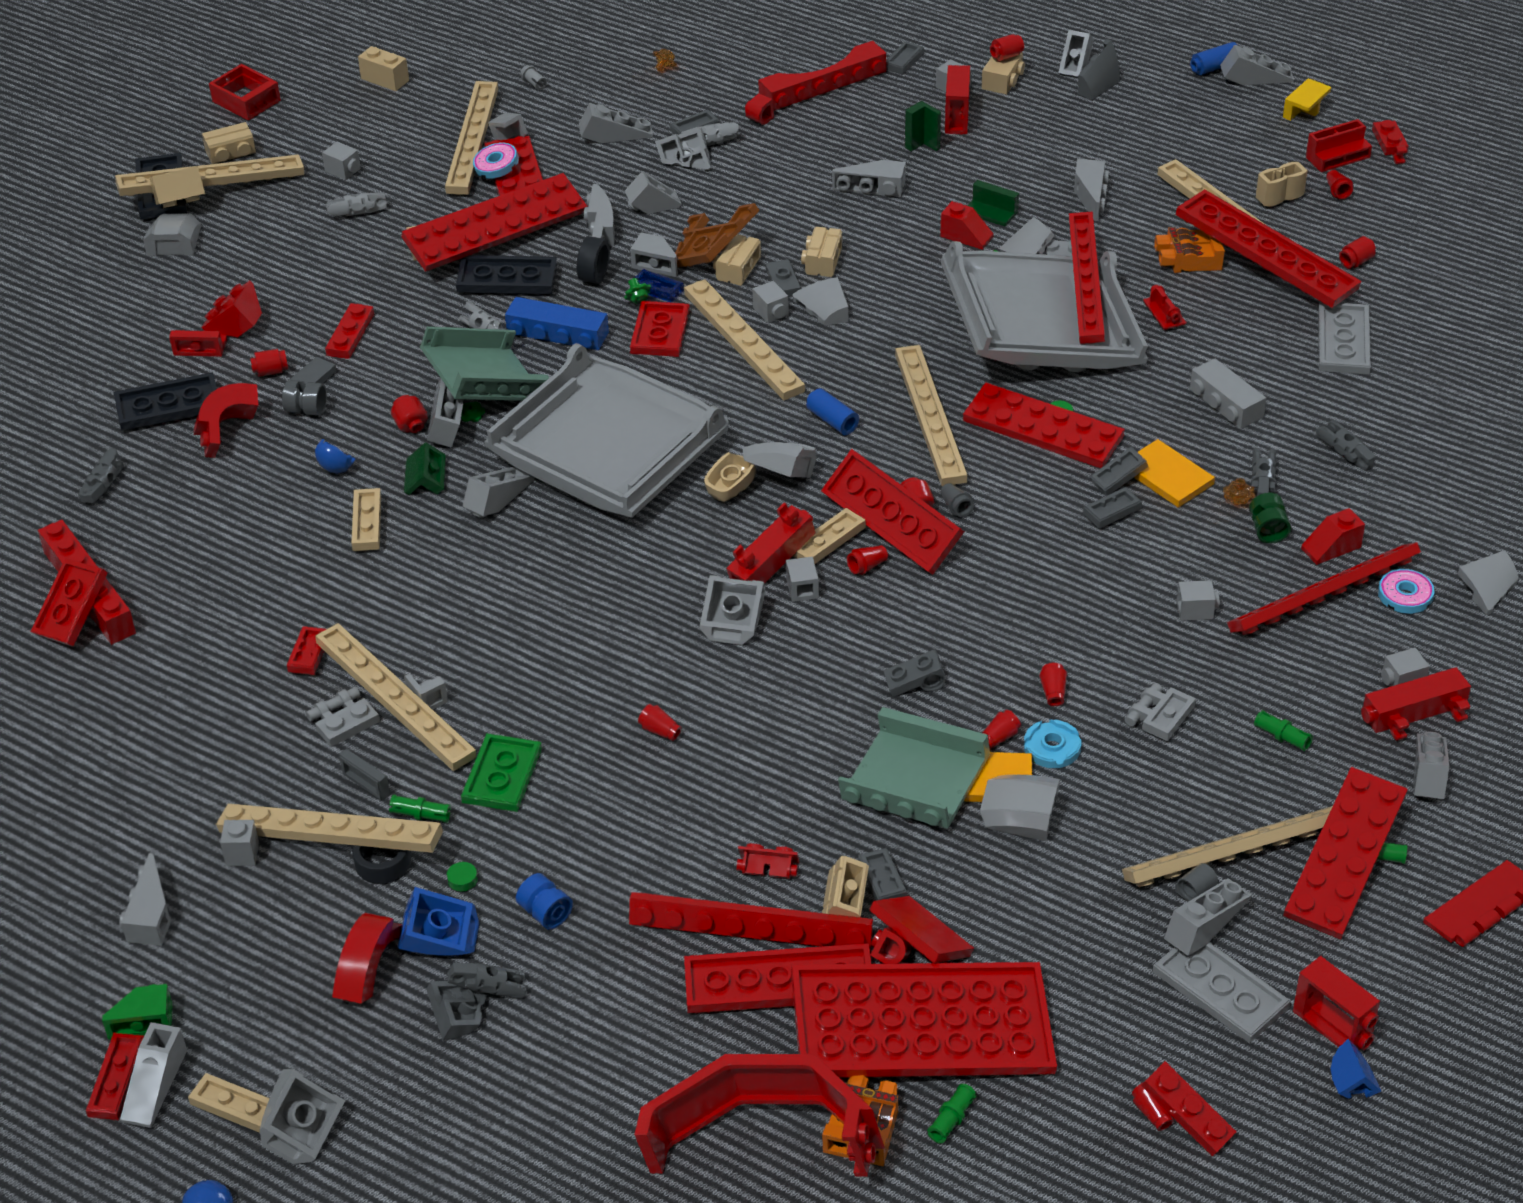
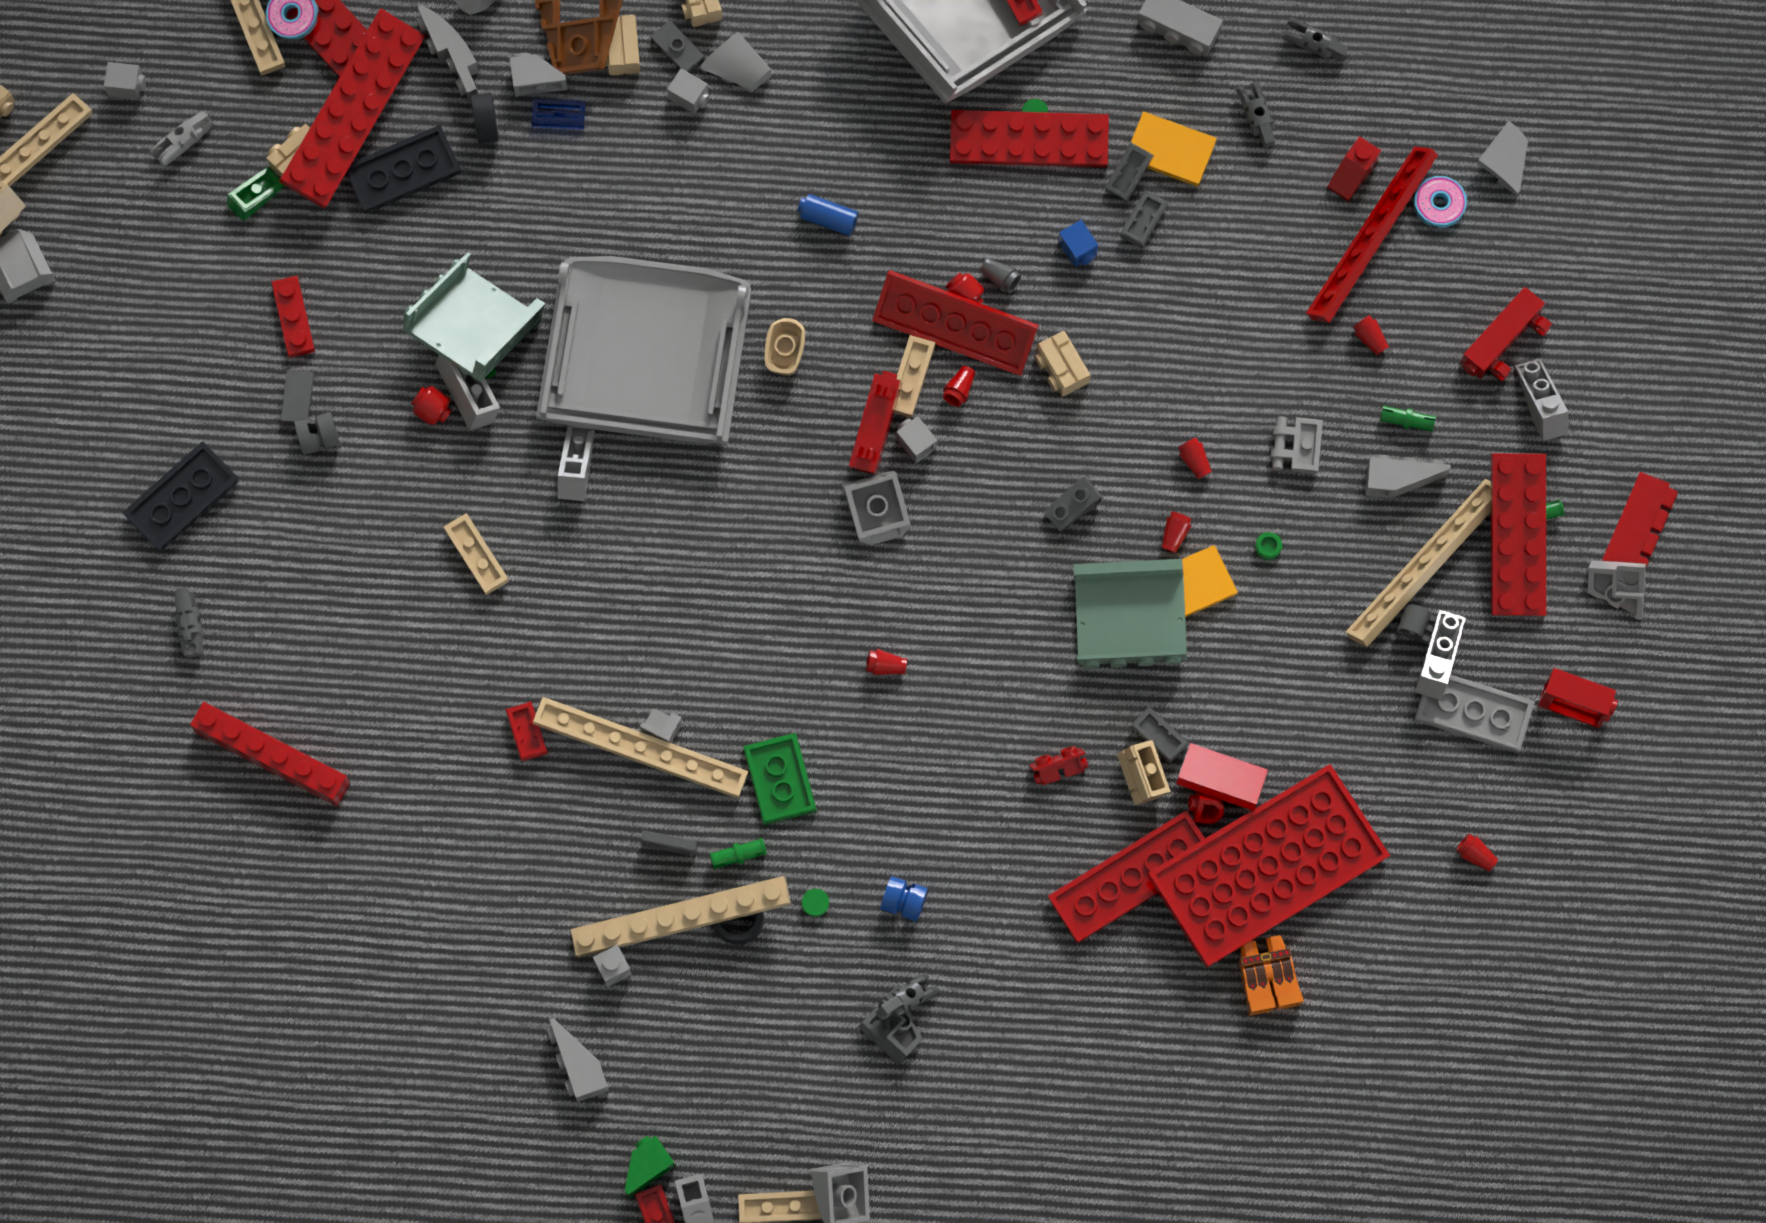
camera: 30 degrees left, 30 degrees up
(69, 602) = (281, 791): red tile -> none
(197, 343) = (154, 403): red panel -> none
(226, 402) = (246, 495): red arch -> none
(234, 313) = (166, 350): red slope -> none
(269, 362) = (247, 400): red brick -> none
(332, 458) = (396, 494): blue hair -> none
(346, 722) = (611, 791): light grey plate -> none
(361, 956) = (795, 1025): red arch -> none
(382, 253) = (253, 193): none -> green slope
(425, 468) = (490, 468): dark green panel -> none
(438, 924) = (831, 966): blue slope -> none
(480, 319) = (424, 249): light grey hinge -> none
(557, 323) = (496, 217): blue brick -> none
(637, 291) = (550, 137): green plant -> none
(660, 328) = (597, 172): red tile -> none
(744, 340) = (686, 150): tan plate -> none
(748, 921) = (1080, 835): red plate -> none
(755, 1080) = (1193, 990): red panel -> none
(783, 458) = (819, 307): light grey slope -> none
(931, 415) = (920, 174): tan plate -> none
(951, 1113) = (1331, 936): green pin -> none
(971, 575) = (1062, 364): none -> tan brick
(1020, 804) = (1235, 607): light grey slope -> none
(1040, 501) = (1078, 243): none -> blue brick
(1052, 756) = (1224, 537): medium azure tile -> none
(1085, 777) = (1268, 546): none -> green tile
(1188, 1108) = (1507, 846): red plate -> none
(1197, 600) = (1271, 302): light grey brick -> none
(1239, 492) = (1246, 148): clear orange plant -> none
(1251, 769) = (1395, 477): none -> light grey slope
(1269, 517) = (1288, 169): dark green wheel -> none
(1281, 656) = (1371, 335): none -> red cone
(1352, 1072) = (1609, 747): blue brick -> none
(1404, 667) = (1480, 303): light grey brick -> none
(1436, 940) = (1619, 584): none -> light grey slope

